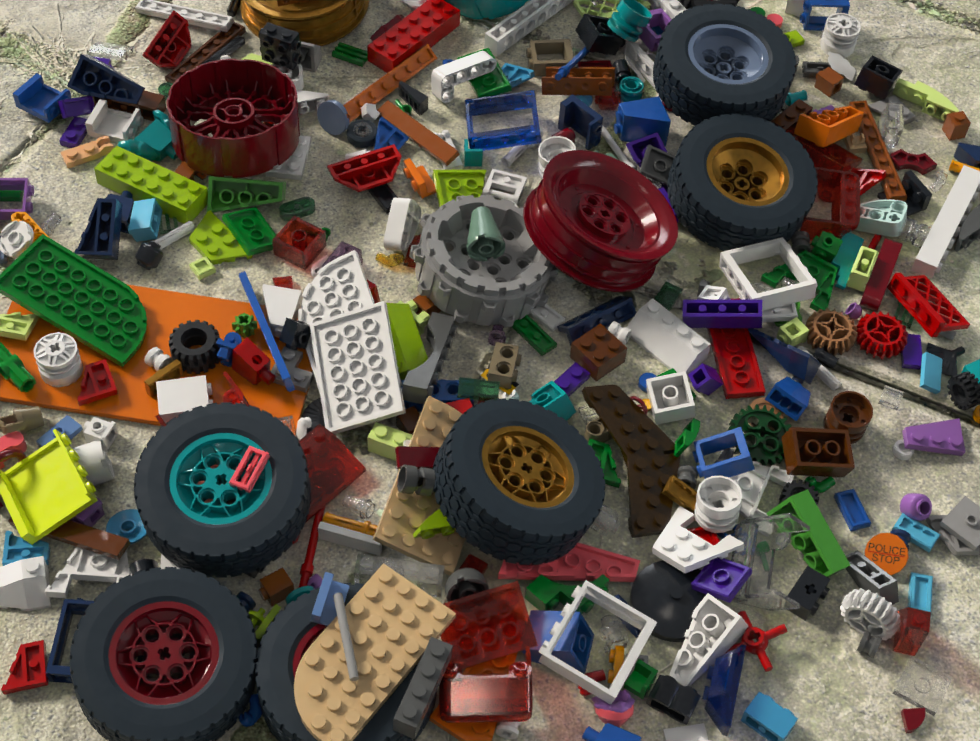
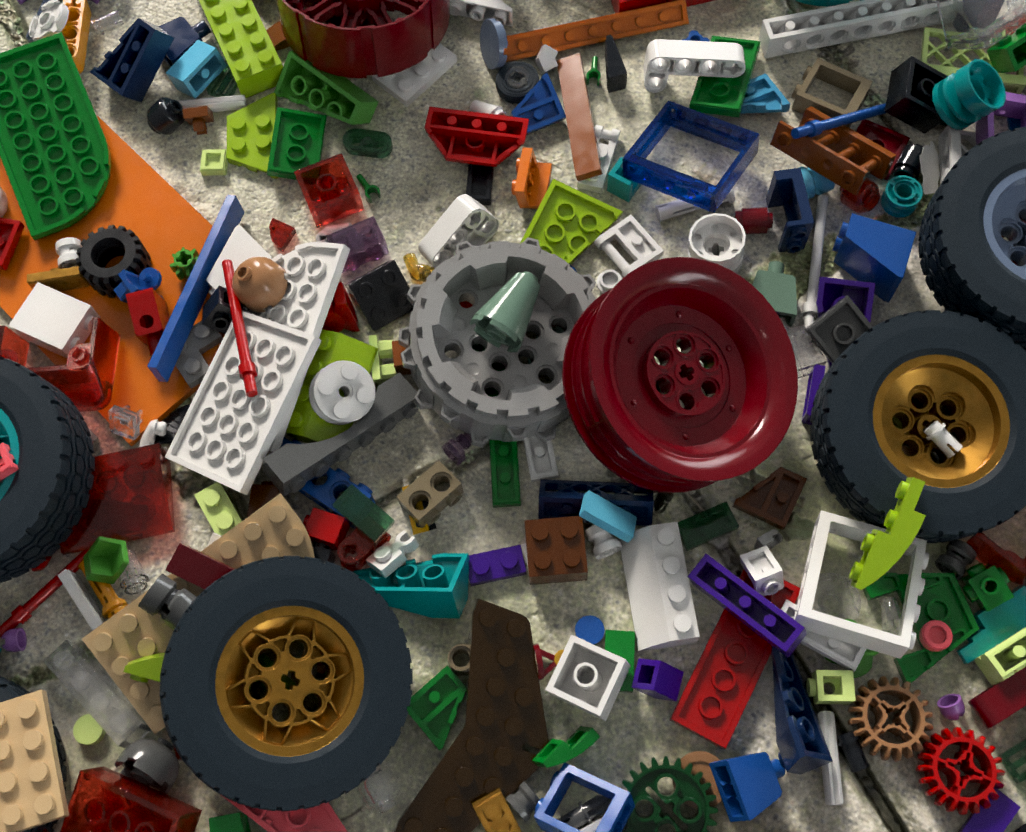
camera: 45 degrees right, 15 degrees up
(171, 247) = (198, 118): none -> dark orange tile
(312, 303) = (259, 283): none -> medium nougat cylinder
(341, 503) = (106, 560): none -> bright green panel
(350, 344) = (246, 368): none -> red bar
(386, 277) = (381, 294): none -> black bracket
(414, 332) = (357, 389): none -> white wheel
(614, 317) = (608, 516): none -> medium azure tile
(688, 266) = (773, 498): none -> reddish brown wing
(752, 183) = (941, 438): none -> white pin
(770, 239) = (887, 547): none -> lime slope
(823, 280) = (935, 636): none -> coral tile

